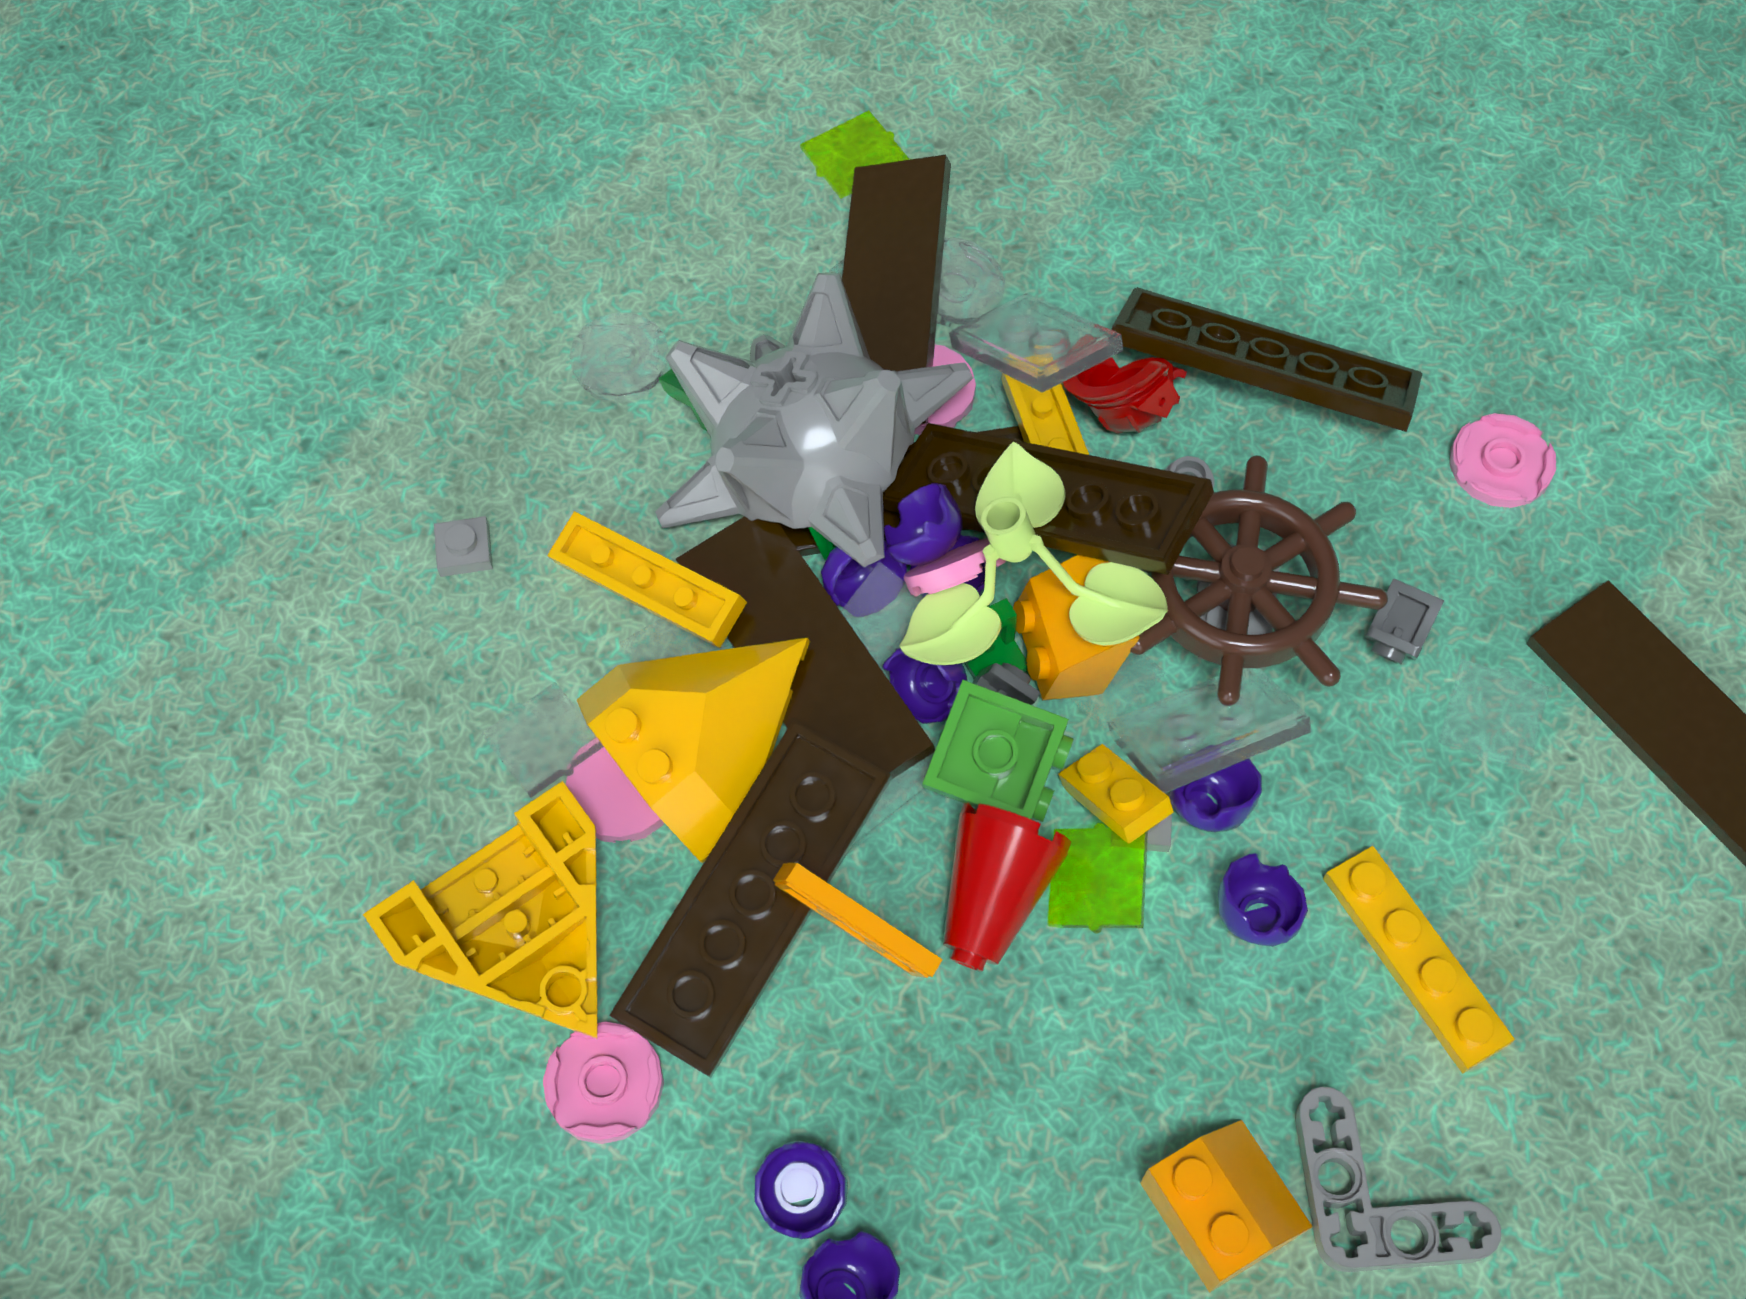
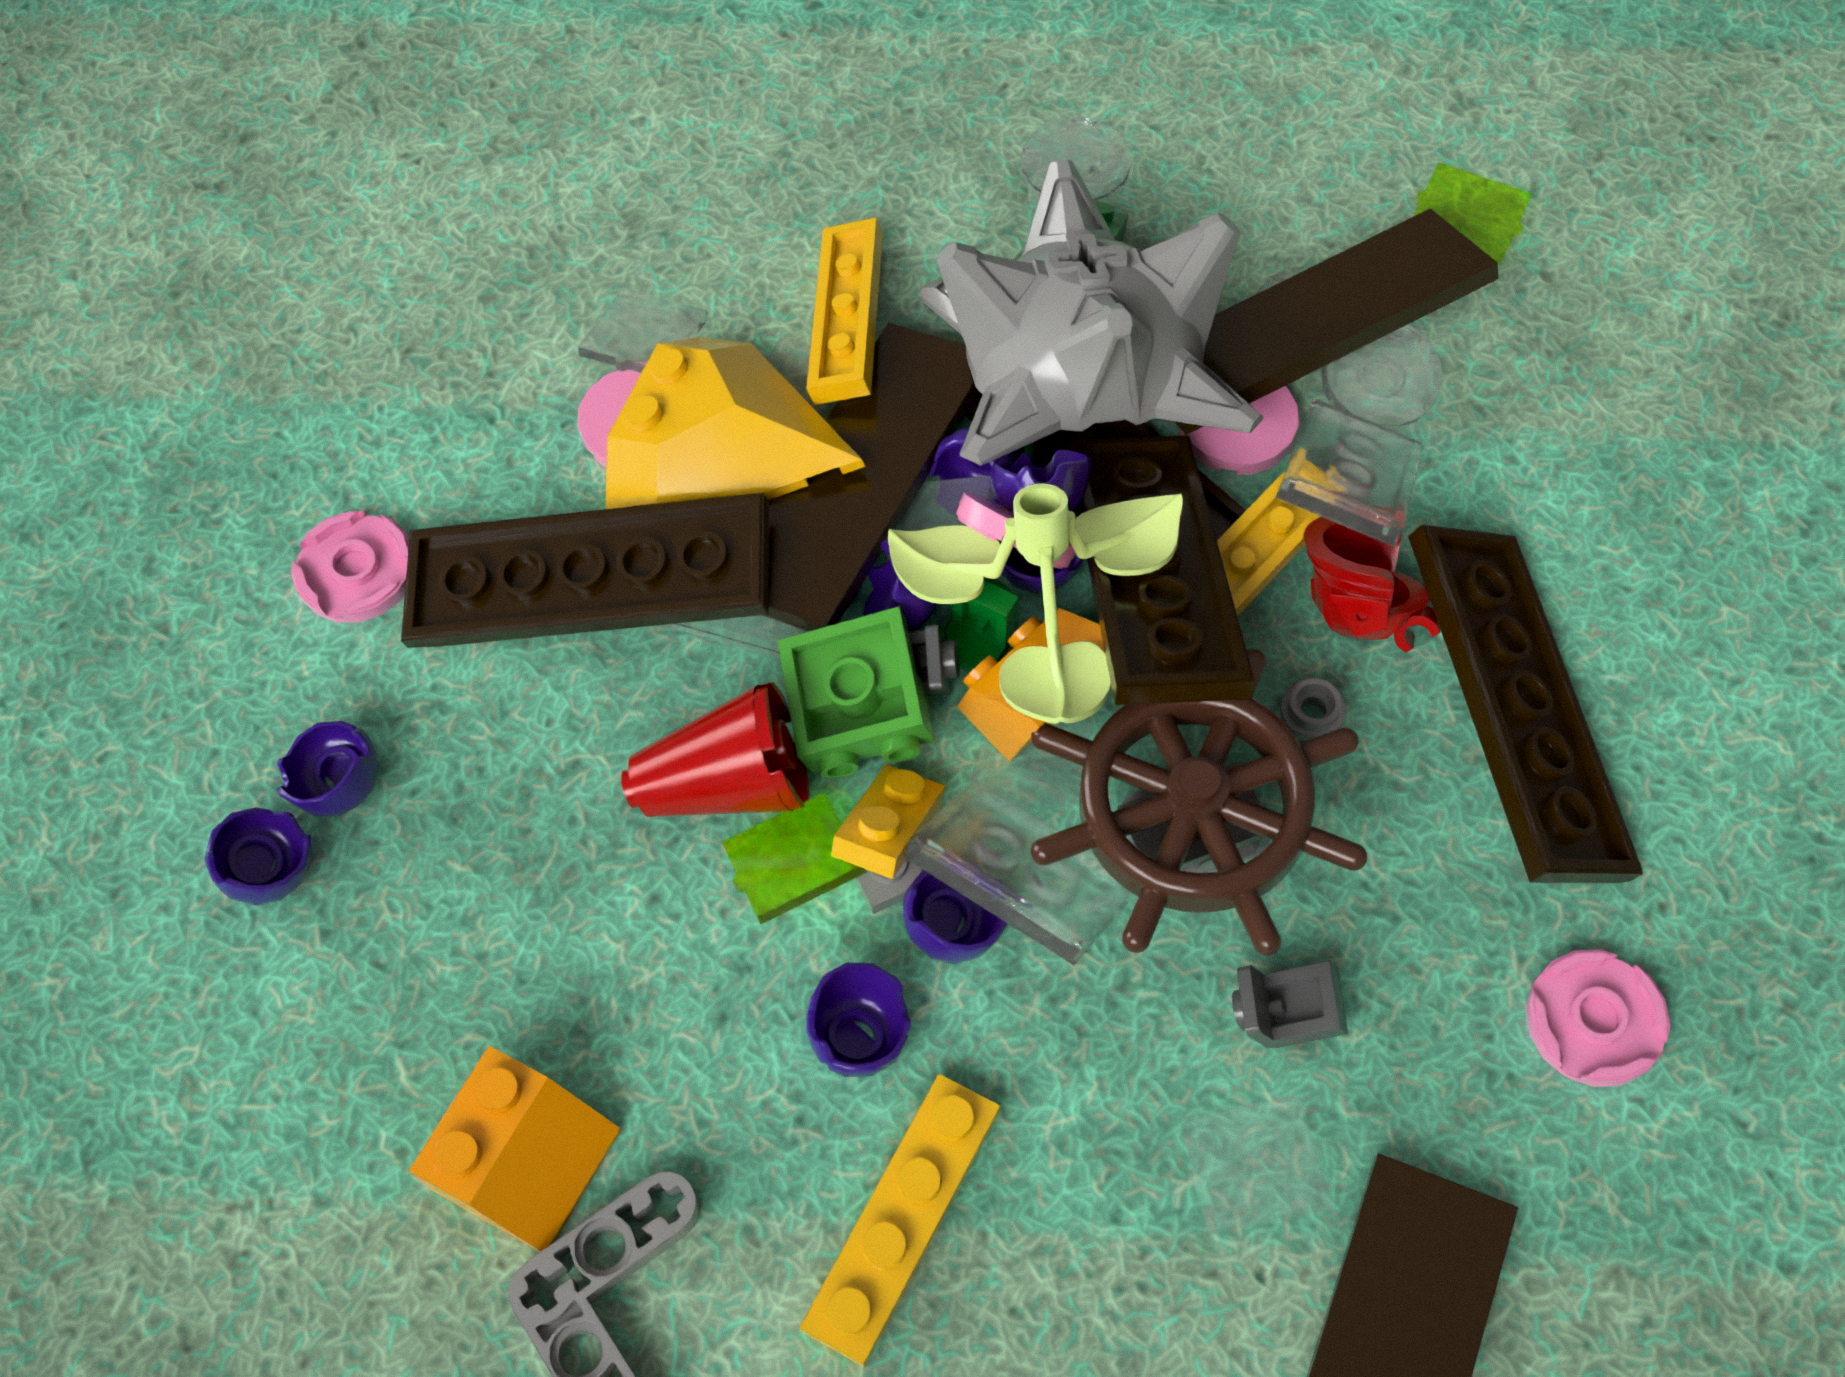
camera: 60 degrees right, 0 degrees up
(463, 546) = (793, 167): light grey plate -> none
(511, 917) = (440, 397): yellow wedge -> none
(856, 920) = (599, 660): light orange tile -> none

